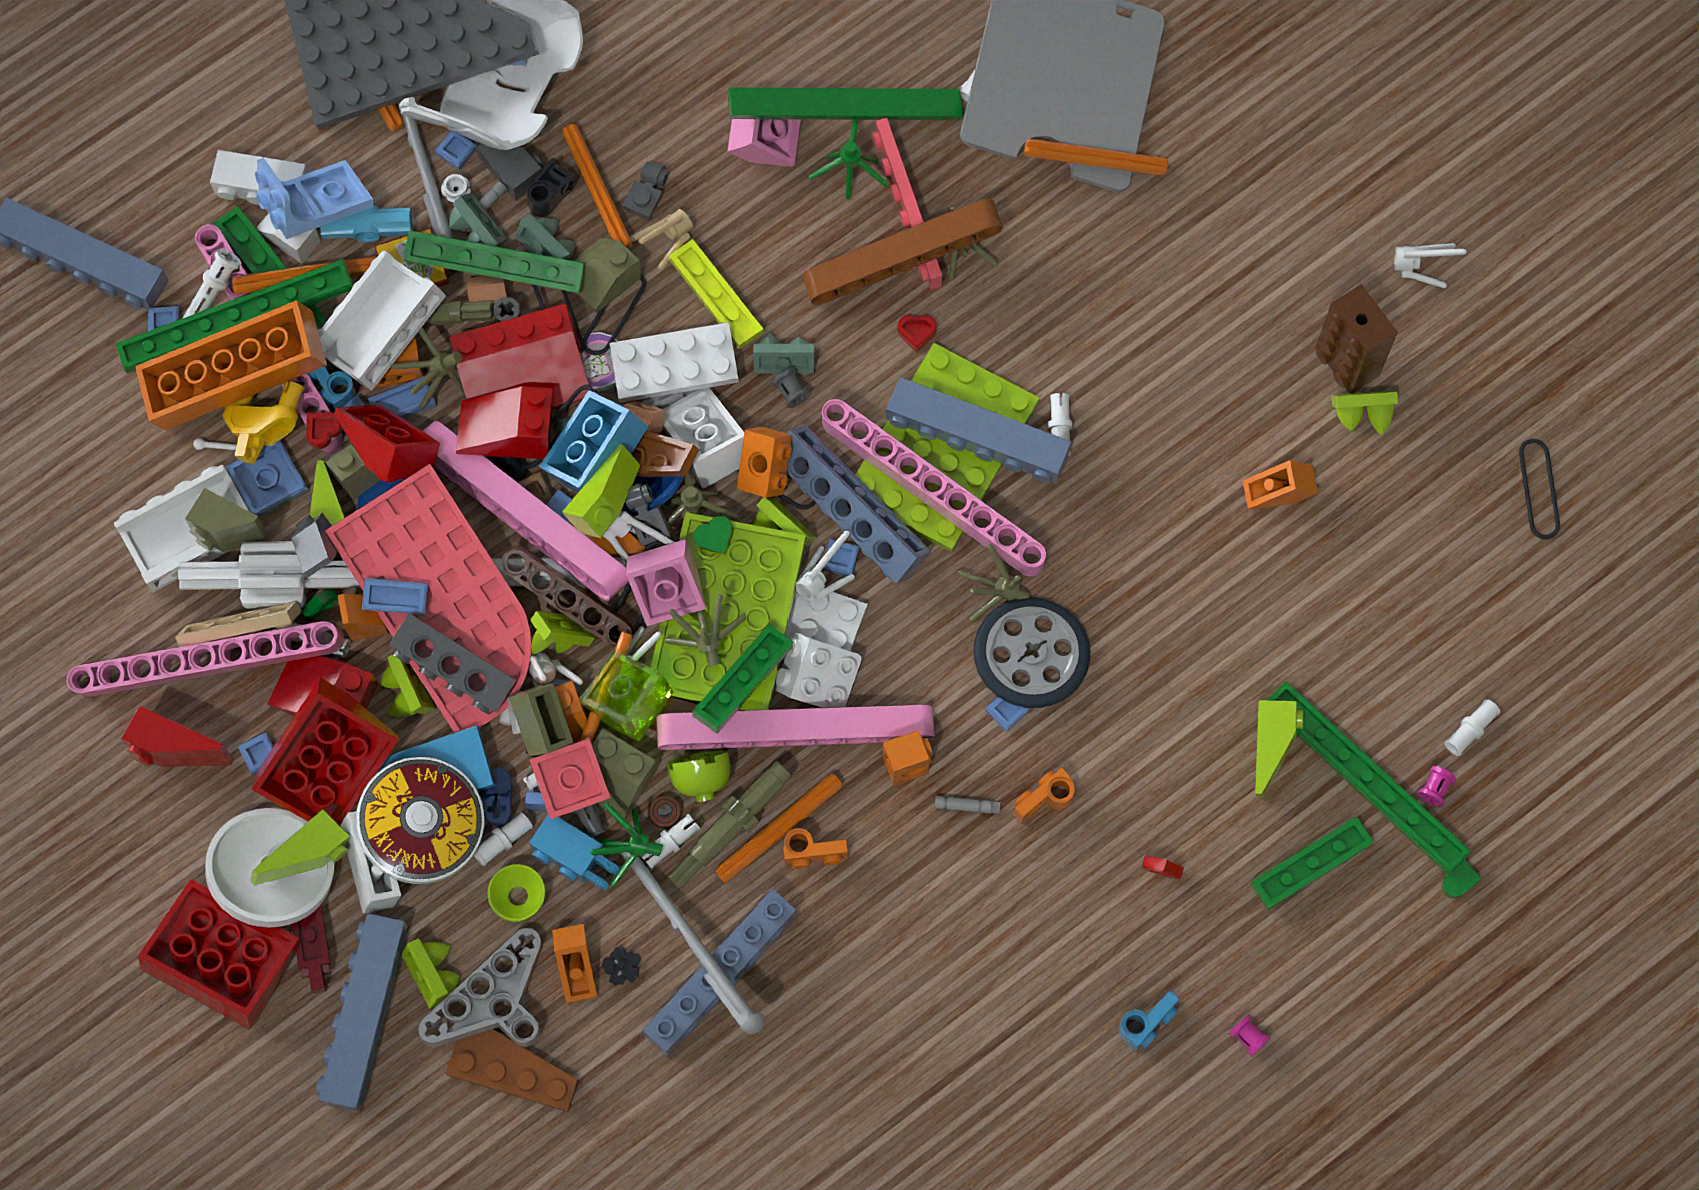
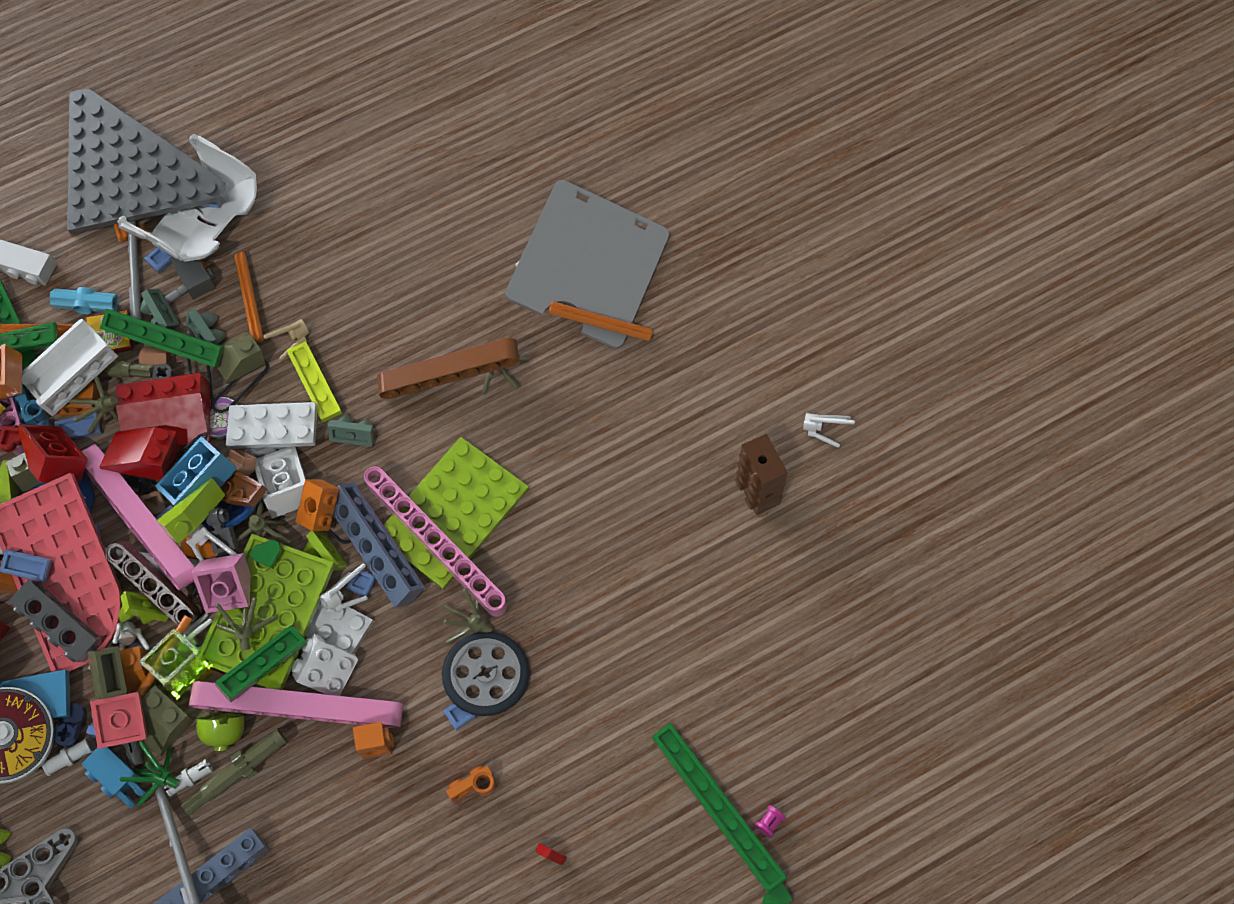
camera: 10 degrees right, 5 degrees down
(297, 246) = (30, 302): white slope -> none
(311, 198) = (42, 278): light blue bracket -> none
(414, 695) = (28, 641): lime tile -> none
(450, 183) = (151, 280): white plate -> none
(505, 882) = (56, 794): lime piece -> none
(552, 183) = (217, 292): black piece -> none
(574, 963) = (94, 861): orange slope -> none
(621, 966) = (131, 869): black plant -> none
(644, 198) = (281, 309): dark grey plate -> none
(665, 812) = (191, 754): copper tile -> none
(765, 140) = (373, 273): bright pink slope -> none
(778, 828) = (270, 779): orange axle -> none
(791, 388) = (352, 455): dark grey bush -> none
(827, 852) = (291, 802): orange plate -> none
(844, 103) = (429, 261): green tile -> none
(850, 157) = (426, 298): green plant -> none
(902, 192) = (459, 328): coral plate -> none
(916, 331) = (451, 426): red tile -> none
(964, 804) = (414, 782): light grey wheel -> none
(977, 431) = (476, 504): sand blue brick -> none
(1060, 423) = (539, 508): white pin -> none
(1275, 736) = (653, 763): lime slope -> none
(1280, 485) = (692, 574): orange slope -> none
(1311, 863) = (664, 868): green plate -> none
(1379, 408) = (774, 527): lime tile -> none
(1472, 727) = (805, 779): white pin -> none
(1552, 489) = (894, 604): black piece -> none

